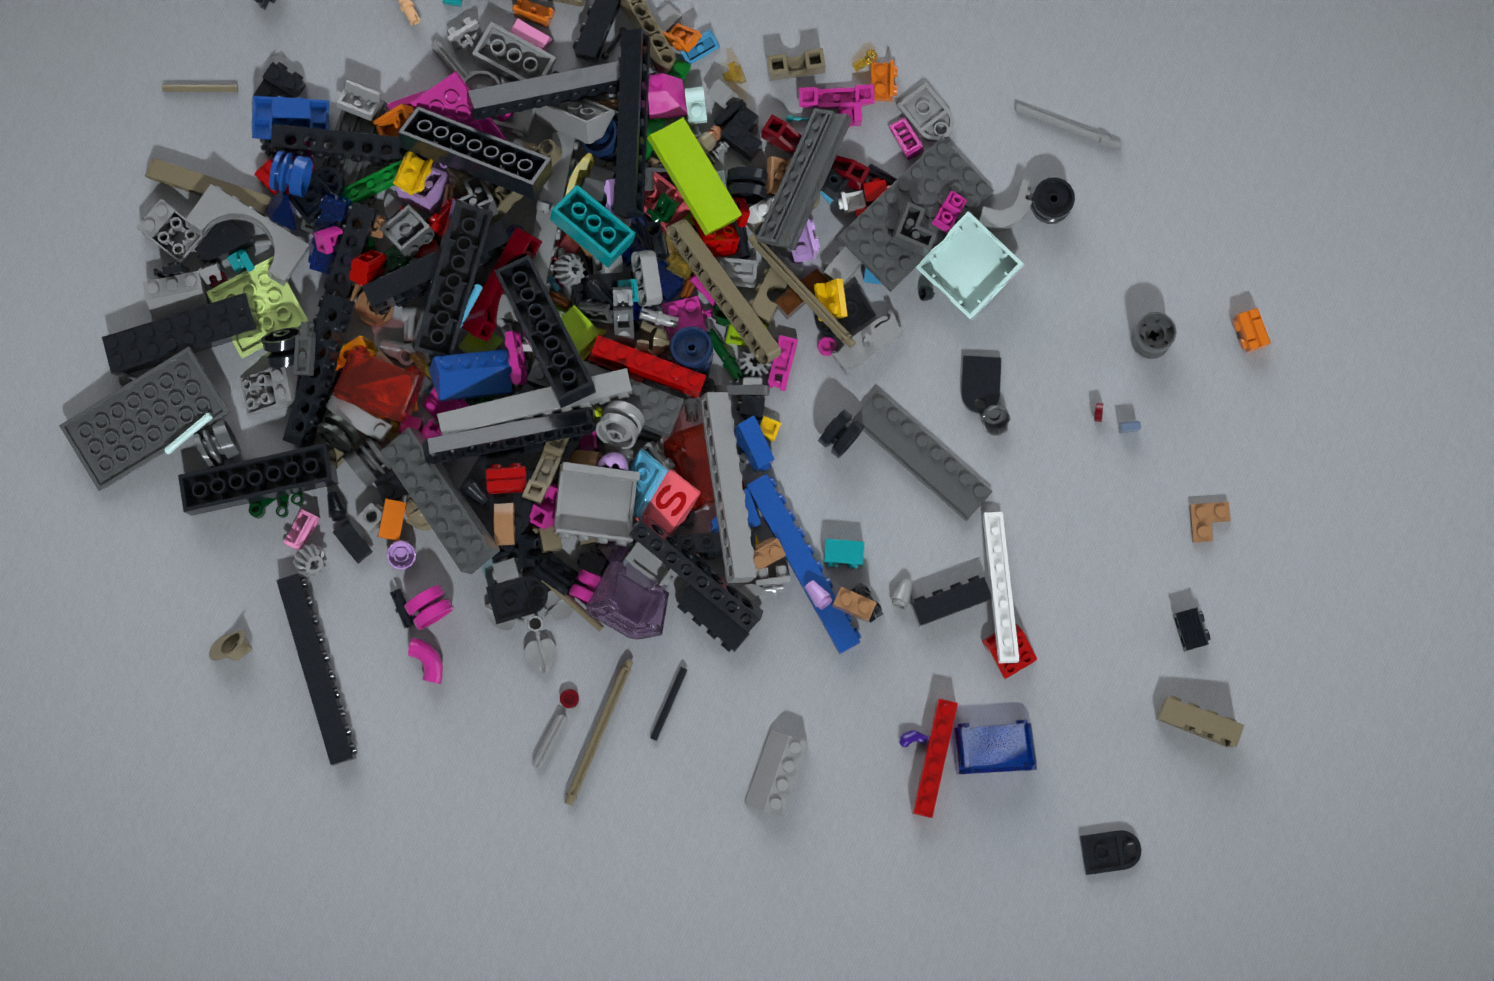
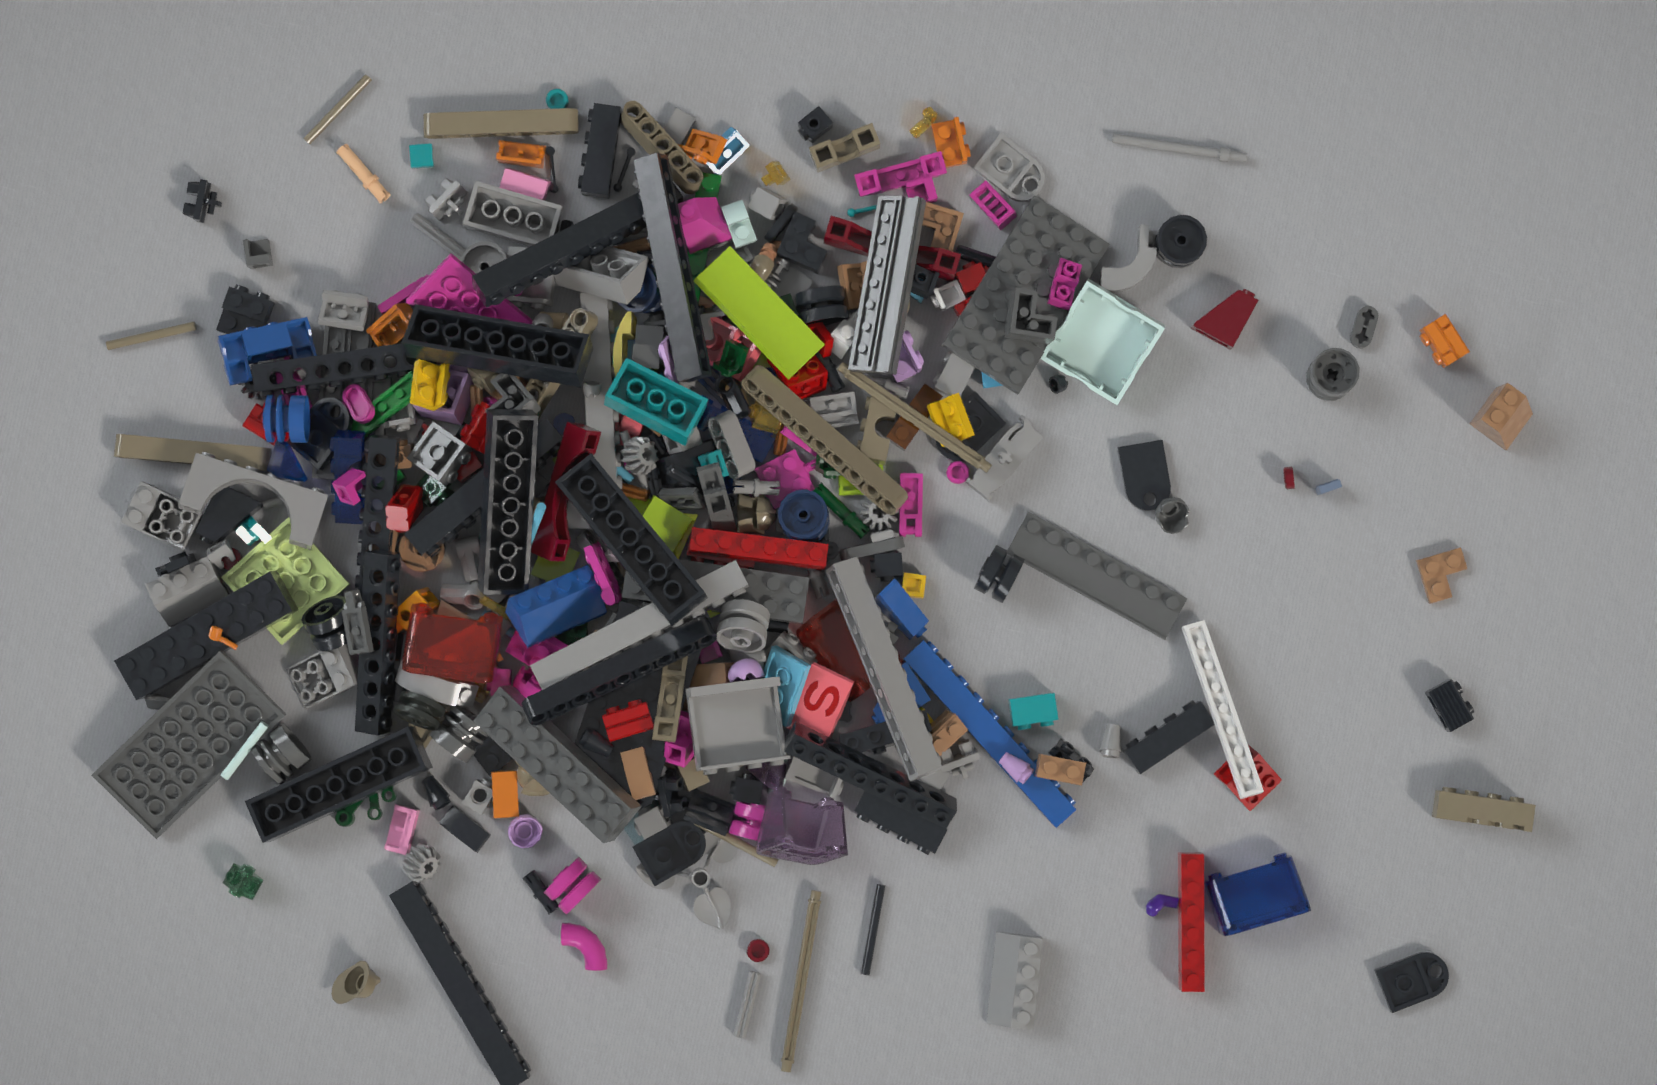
camera: 15 degrees left, 5 degrees up
(159, 541) = (242, 881): none -> clear green brick
(188, 332) = (215, 634): none -> orange hand
(302, 42) = (257, 253): none -> dark grey panel
(352, 177) = (358, 403): none -> dark pink tile
(386, 198) = (404, 418): none -> light grey bracket
(557, 16) = (550, 152): none -> black hinge
(776, 41) = (814, 125): none -> black brick
(863, 143) = (946, 225): none -> medium nougat plate
(1076, 272) = (1227, 319): none -> dark red slope
(1191, 307) = (1359, 325): none -> dark grey beam
(1288, 401) = (1503, 415): none -> medium nougat slope

